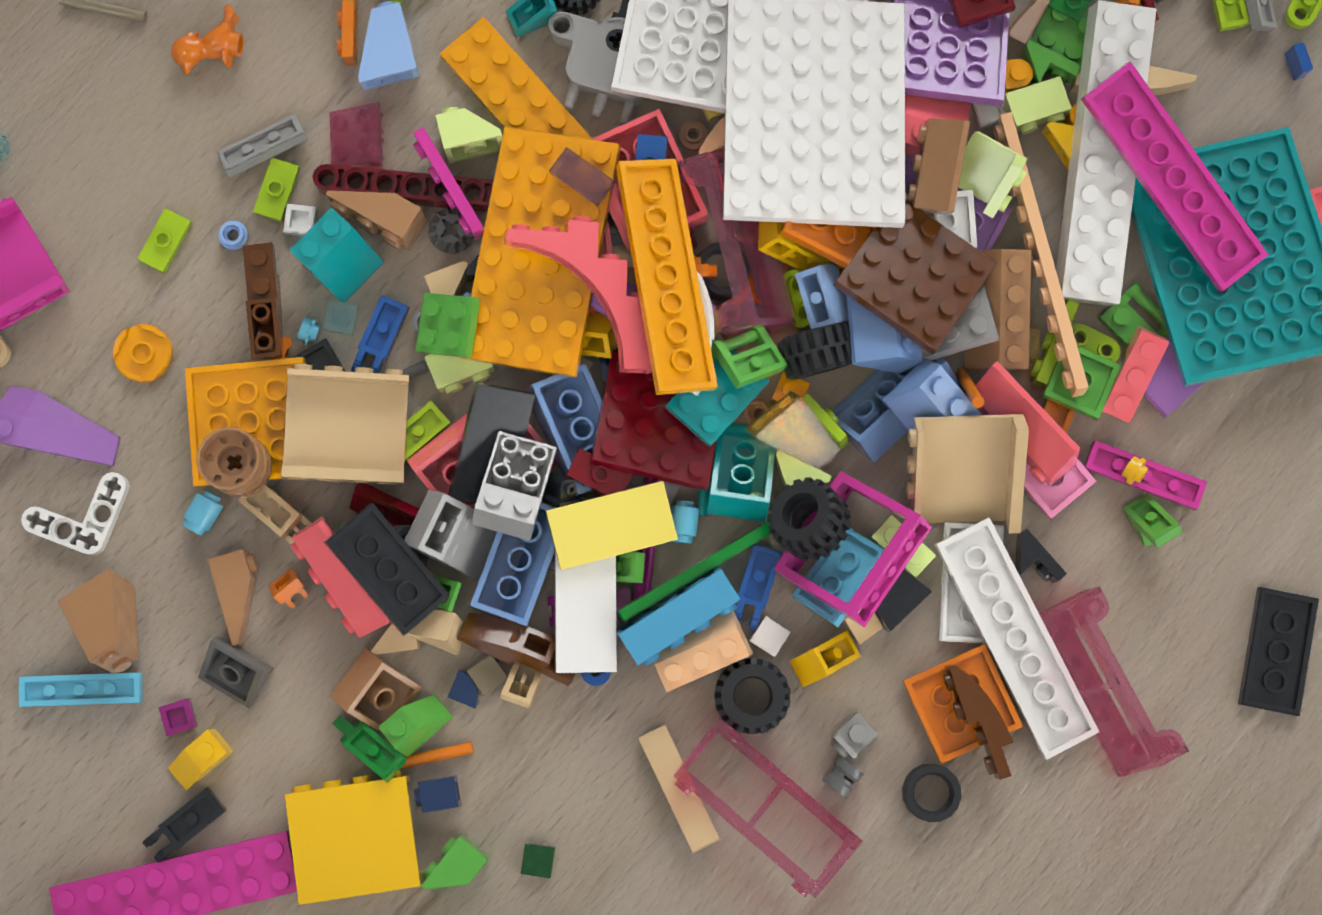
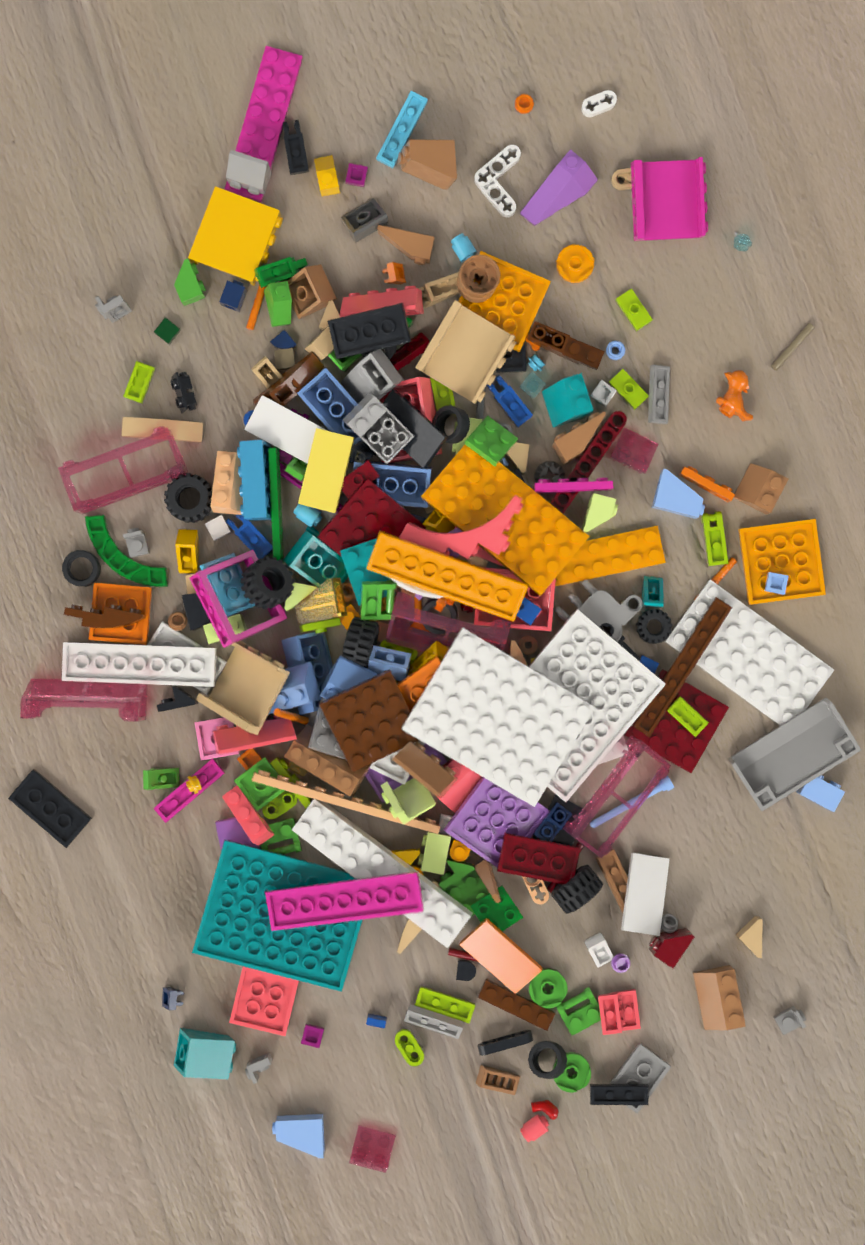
camera: 125 degrees right, 5 degrees up
(256, 866) = (248, 173): none -> light grey slope
(437, 379) = (462, 426): none -> black tyre
(582, 176) = (532, 562): tile -> none
(601, 799) = (180, 384): none -> black hinge
(630, 858) = (139, 382): none -> lime plate
(838, 782) = (117, 523): dark grey wheel -> none
(891, 748) = (117, 560): none -> green tile
(927, 619) = (177, 621): none -> medium nougat plate

